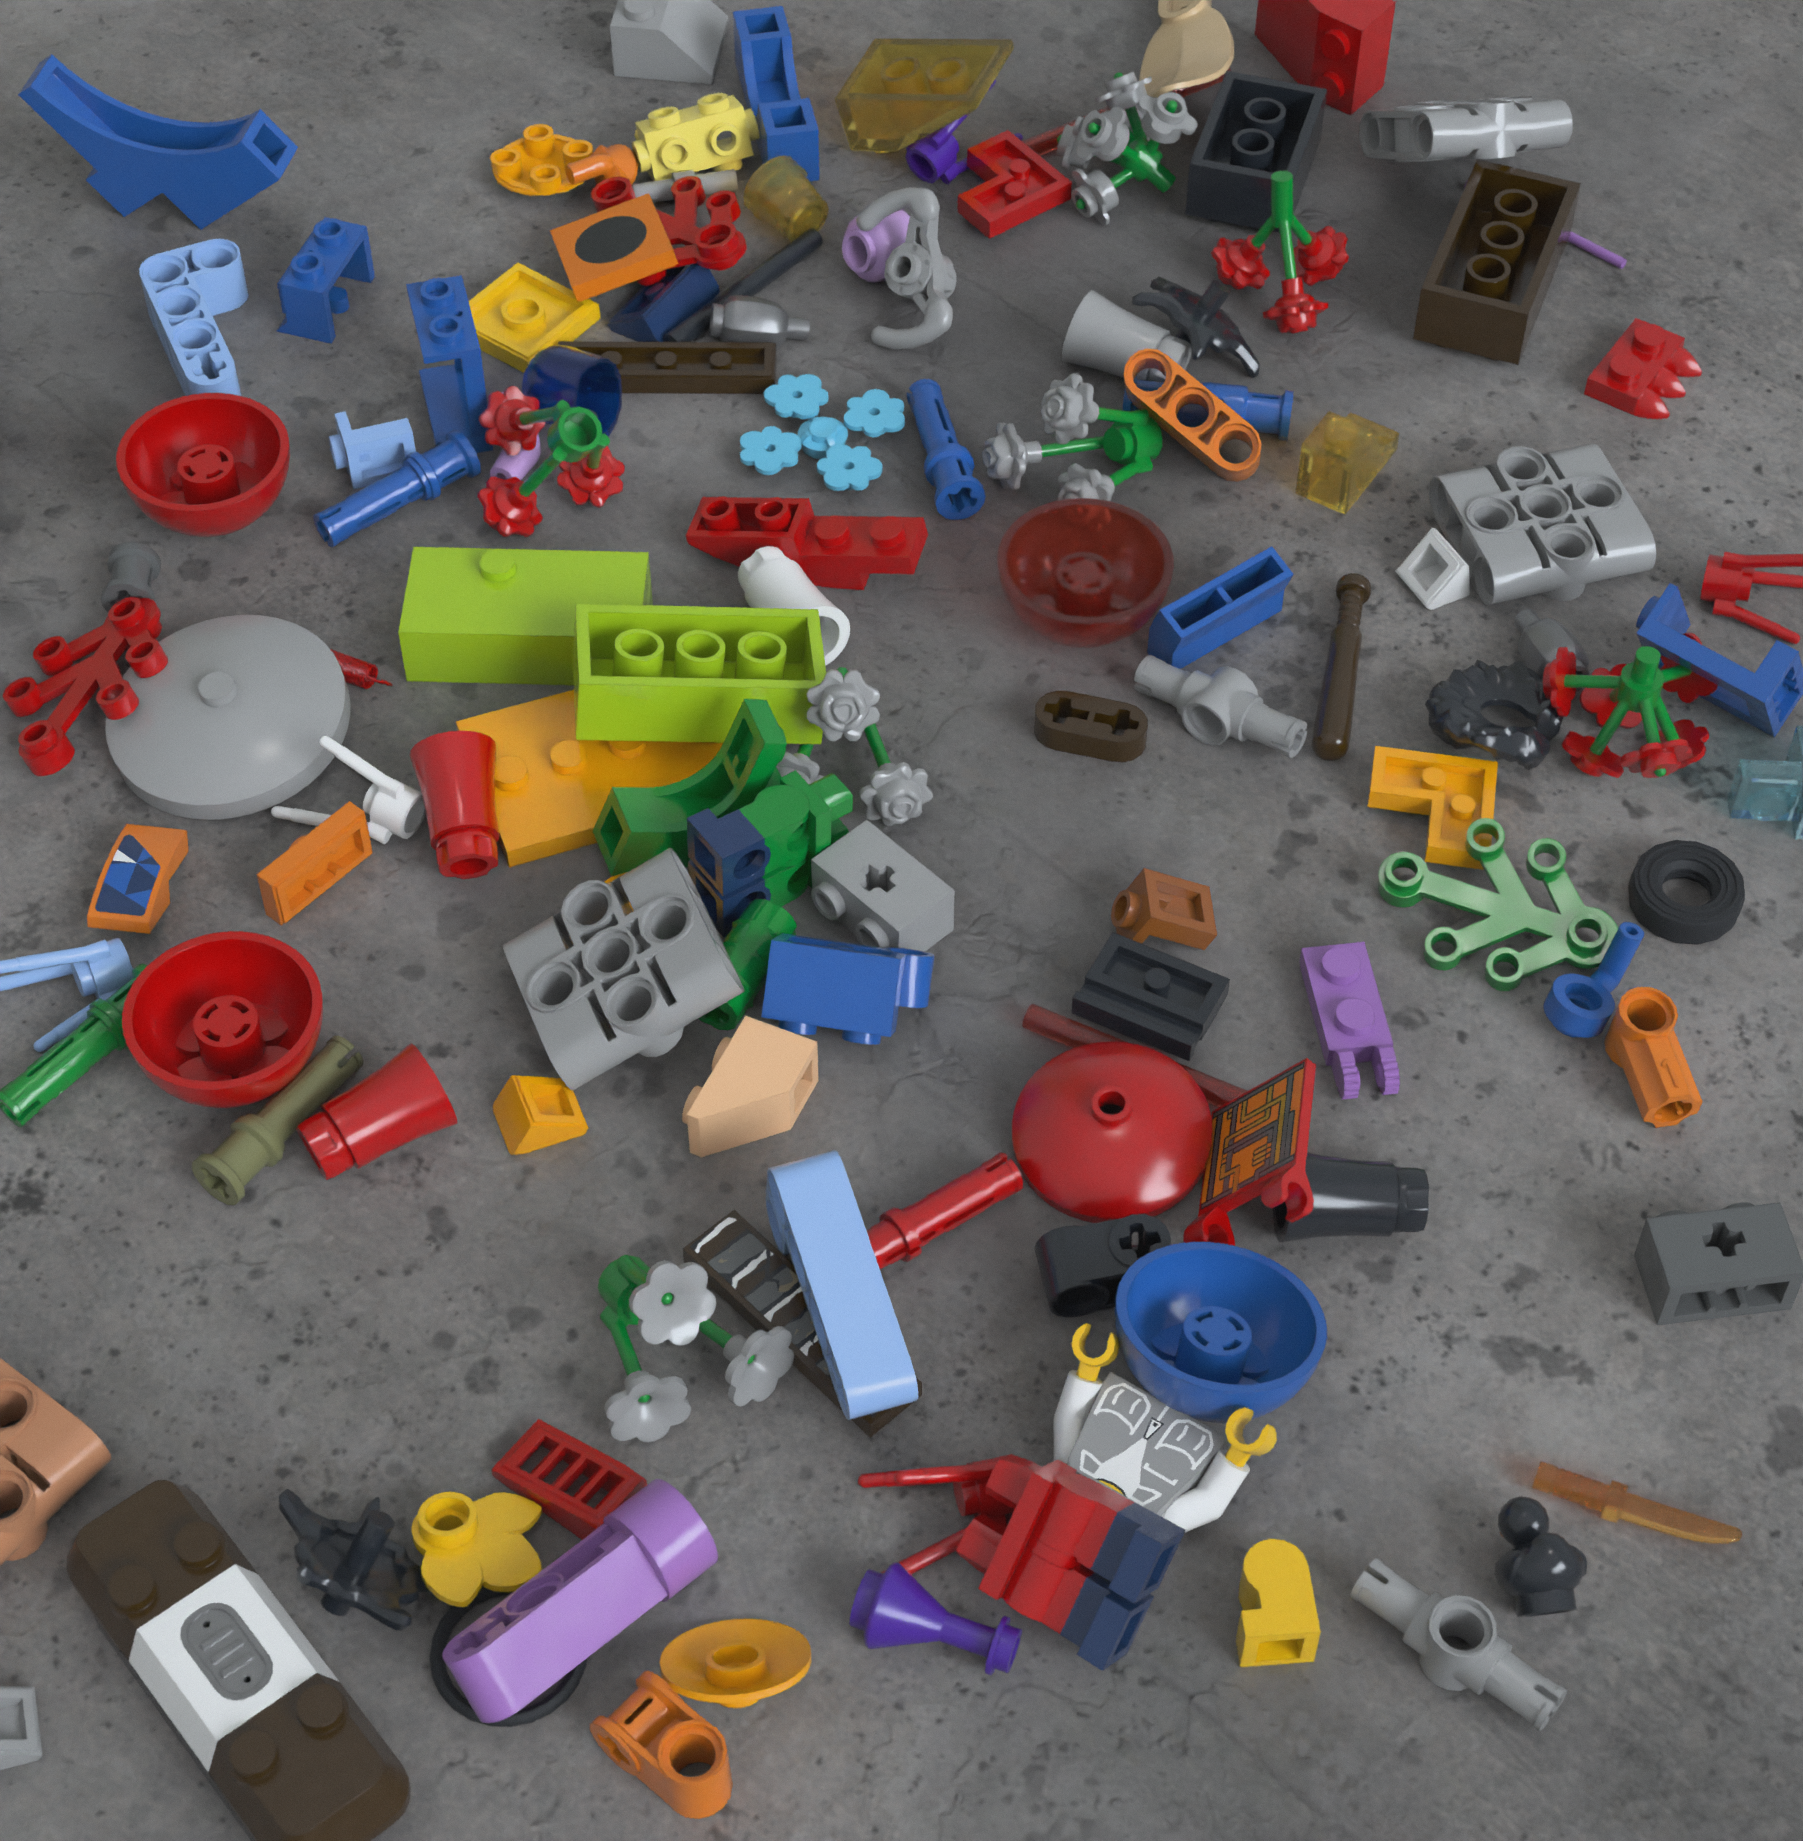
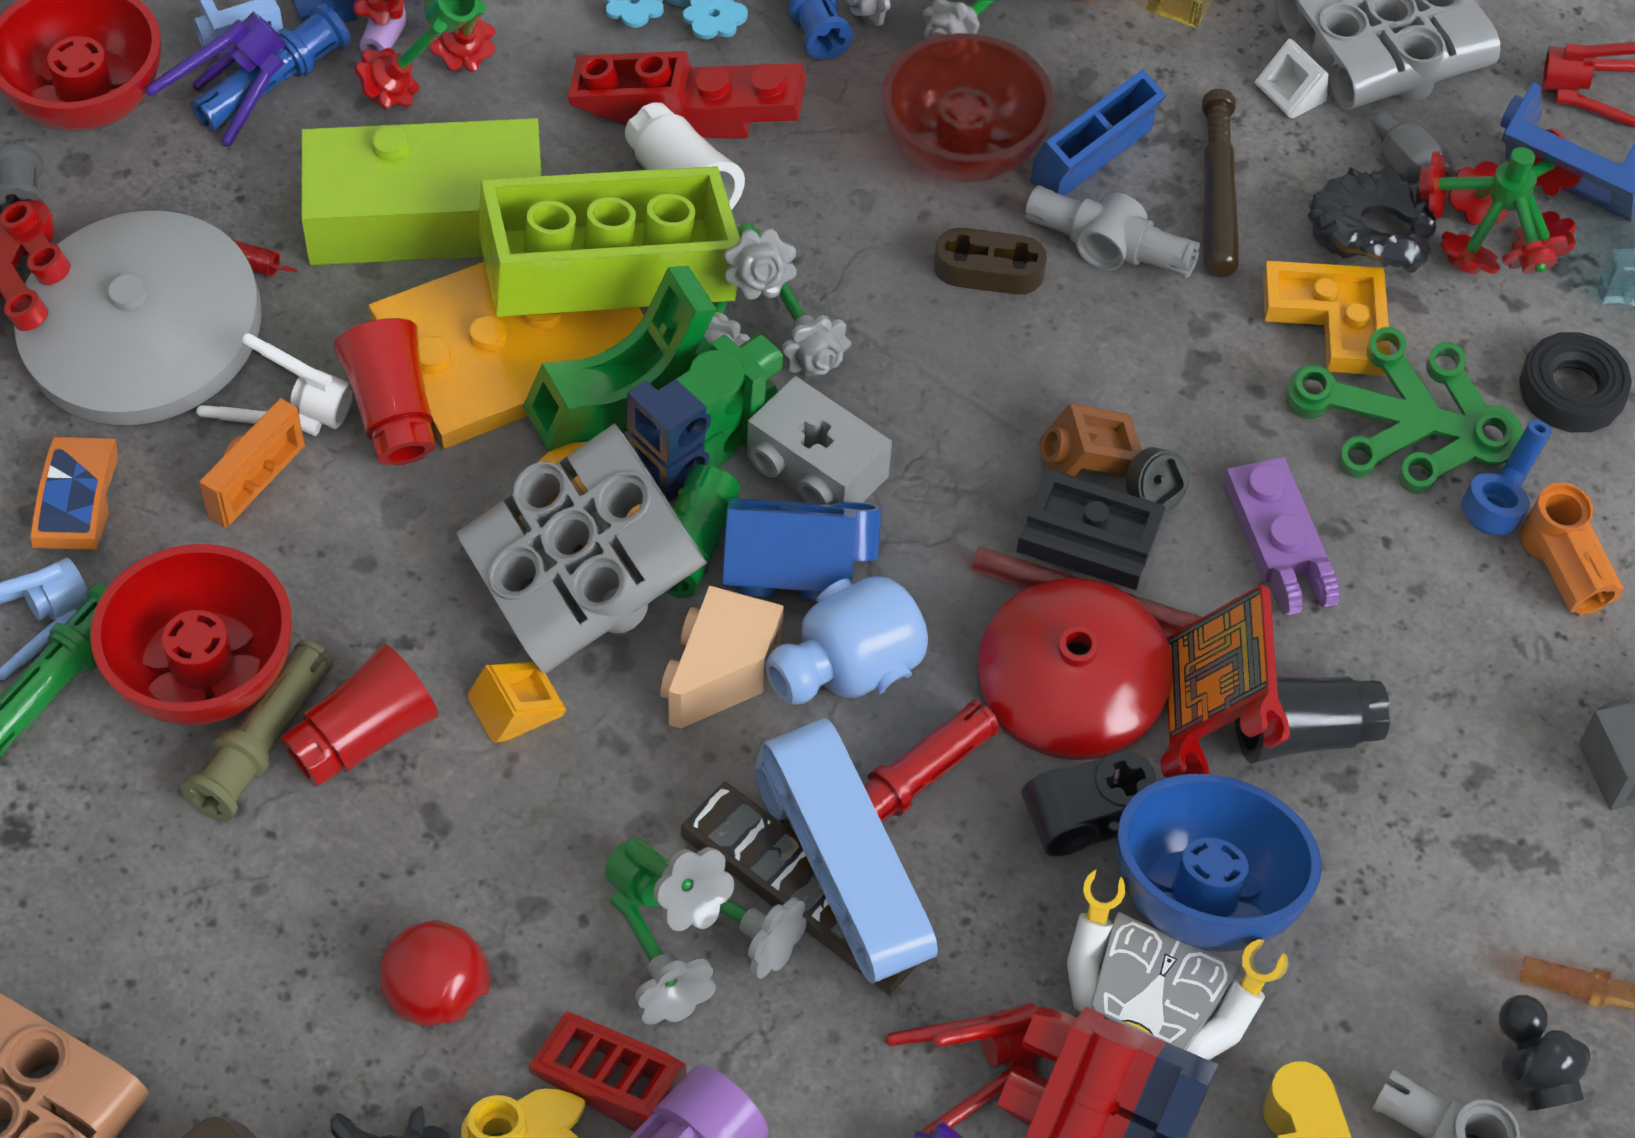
camera: 10 degrees left, 5 degrees up
(377, 464) = (247, 42): none -> dark purple plant
(411, 1369) = (433, 973): none -> red hair
(882, 1084) = (851, 642): none -> light blue piece
(1227, 950) = (1158, 477): none -> pearl dark grey tile

